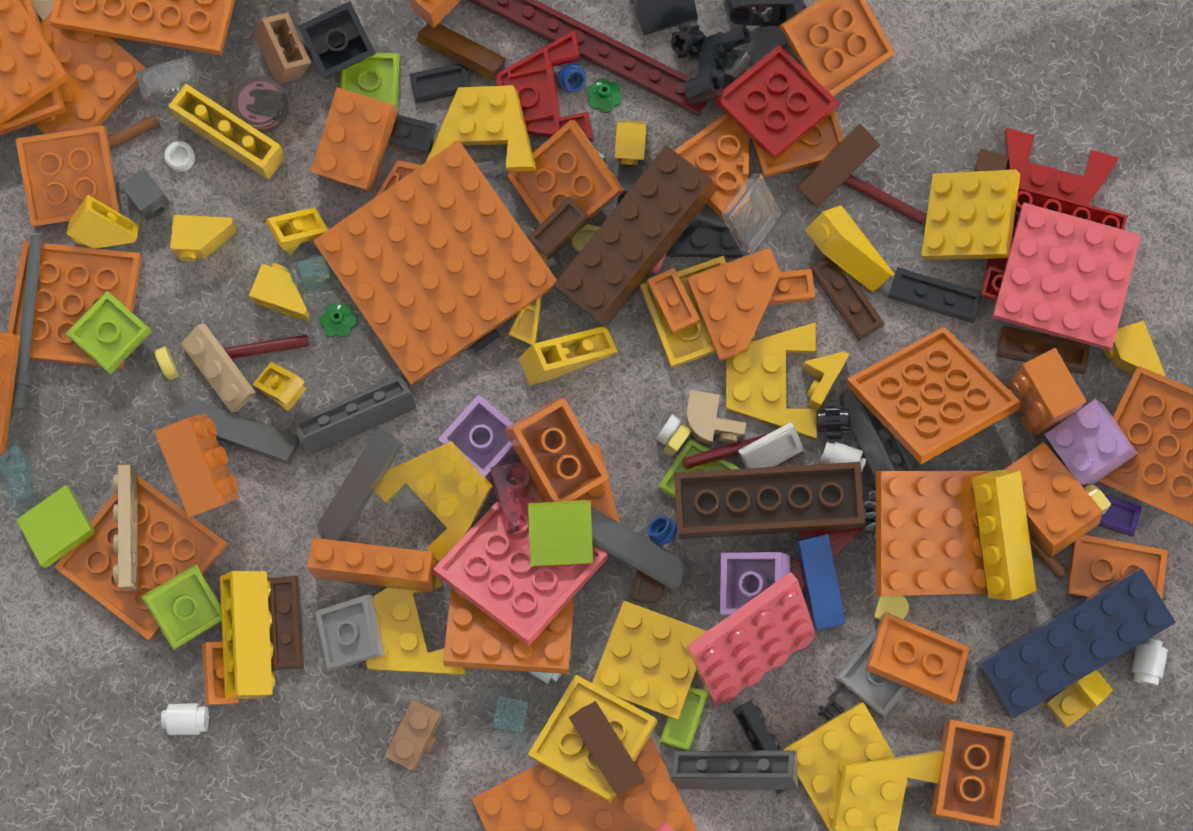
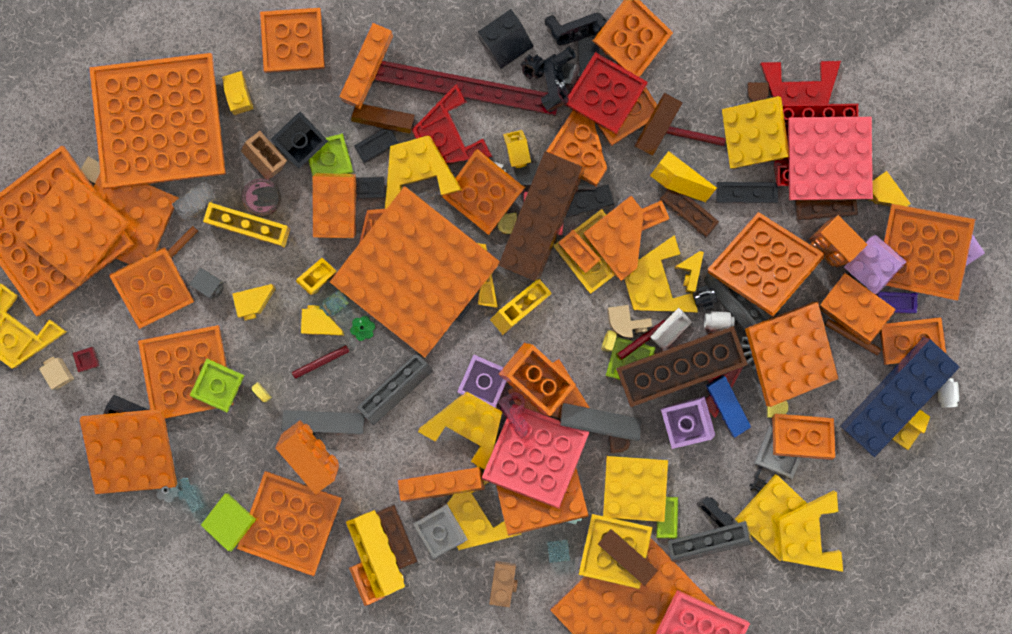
camera: 20 degrees left, 10 degrees up
(22, 377) = (172, 433): dark grey bar -> none
(100, 225) = (186, 315): yellow slope -> none
(125, 514) = (278, 519): tan plate -> none
(179, 156) = (219, 249): white tile -> none
(184, 607) = (329, 548): lime tile -> none
(185, 719) = (354, 618): white brick -> none
(218, 368) = (296, 385): tan plate -> none
(280, 385) = (339, 384): yellow slope -> none
(359, 485) = (415, 436): dark grey slope -> none
(559, 228) = (489, 225): reddish brown tile -> none
(560, 533) = (556, 430): lime tile -> none
(578, 80) = (463, 115): blue plate -> none
(604, 100) = (490, 124): green plant -> none
(662, 530) = (617, 399): blue plate -> none
(668, 429) = (601, 336): white tile -> none
(752, 214) = (613, 177): clear tile -> none
(753, 640) = (699, 462): coral plate -> none
(972, 773) = (857, 499): orange brick -> none
(1004, 534) = (836, 342): yellow brick -> none
(1097, 495) = (888, 298): light yellow tile -> none

